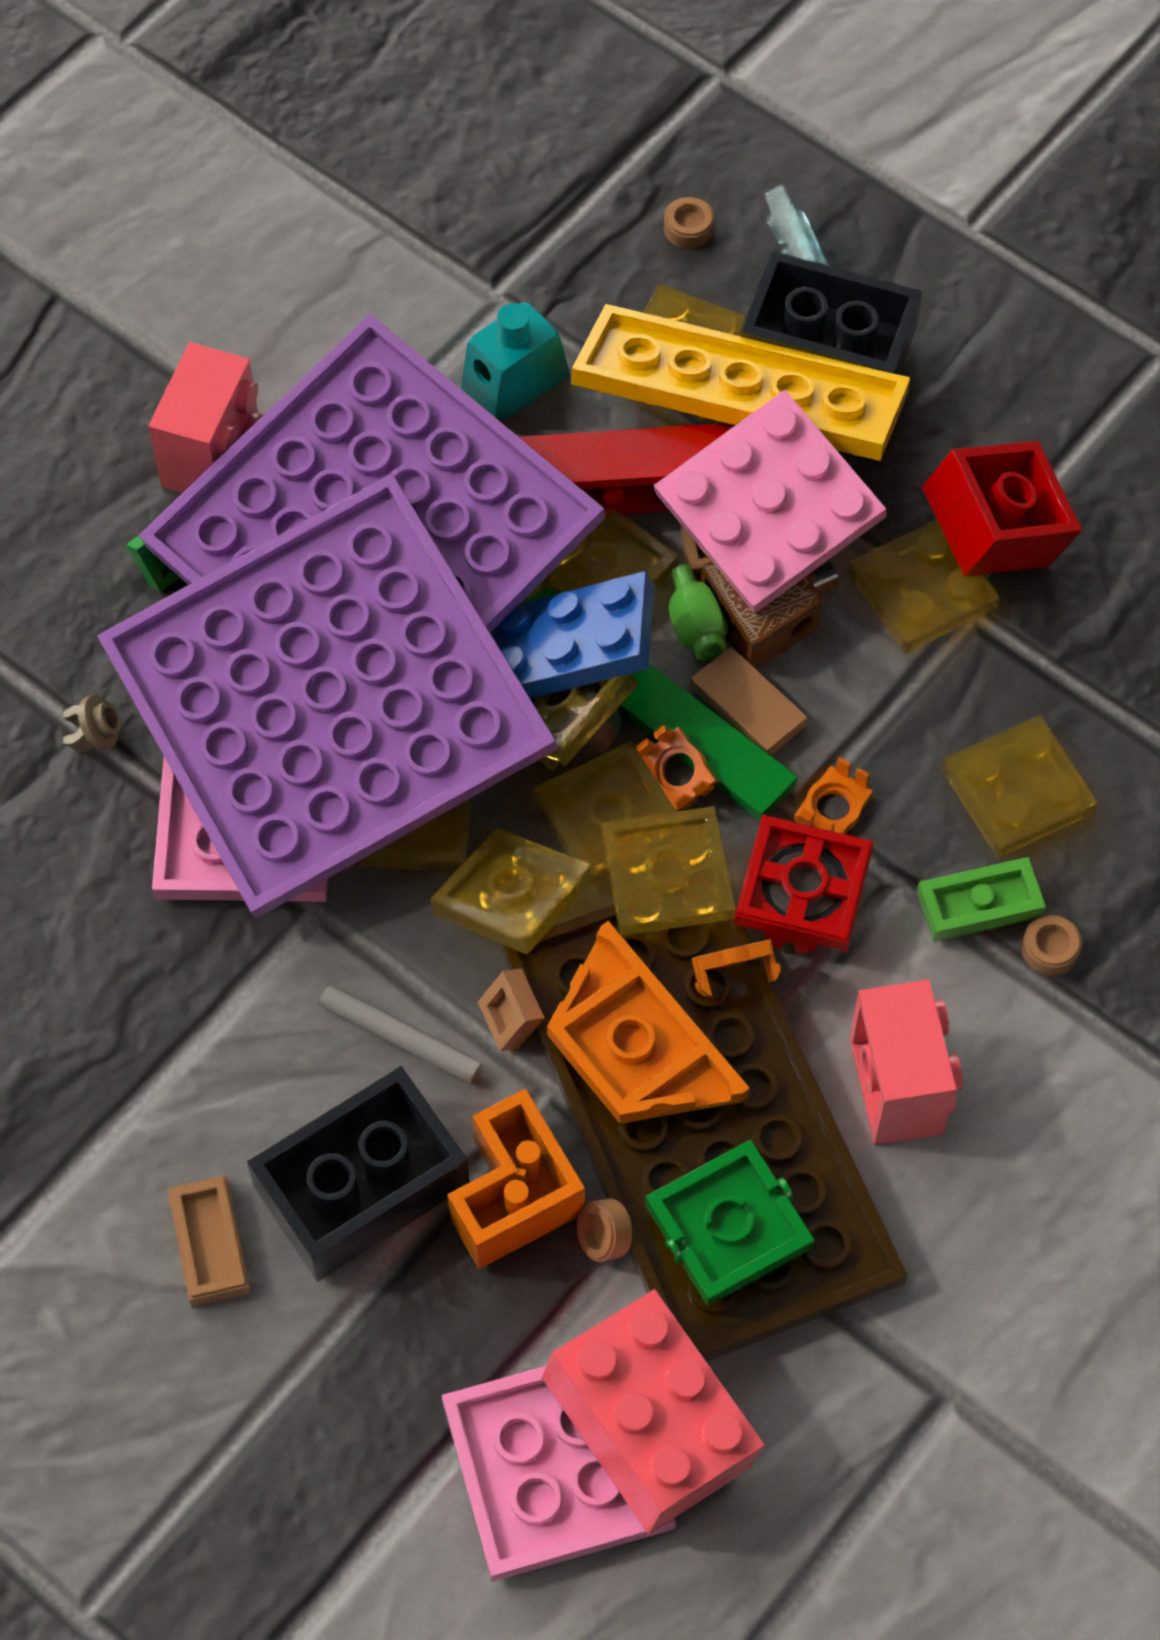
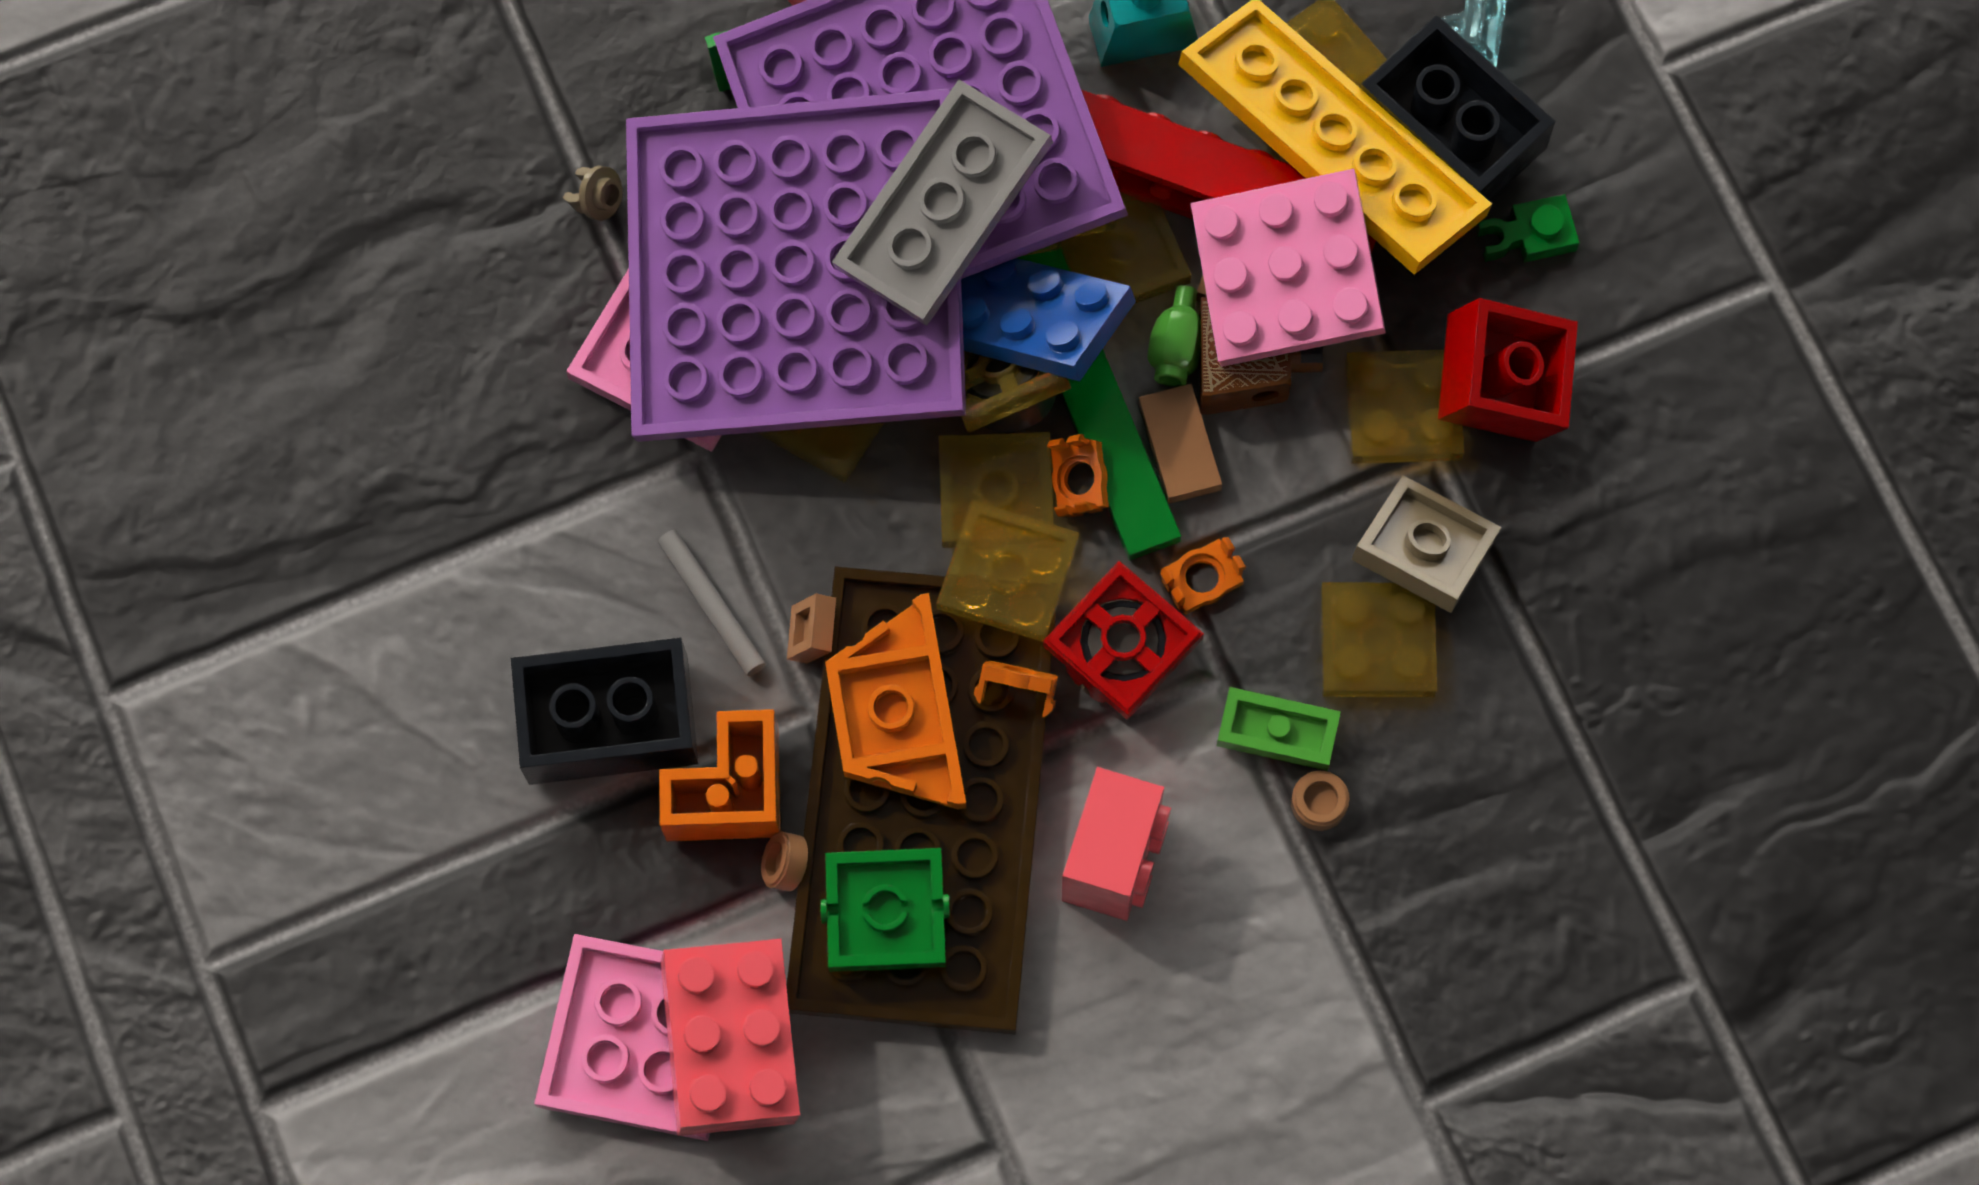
camera: 30 degrees right, 10 degrees up
(209, 1241) = (460, 704): medium nougat tile -> none
(442, 568) = (942, 202): none -> light grey plate
(512, 890) = (868, 522): clear yellow plate -> none
(947, 395) = (1537, 227): none -> green plate
(1016, 683) = (1426, 543): none -> dark tan plate

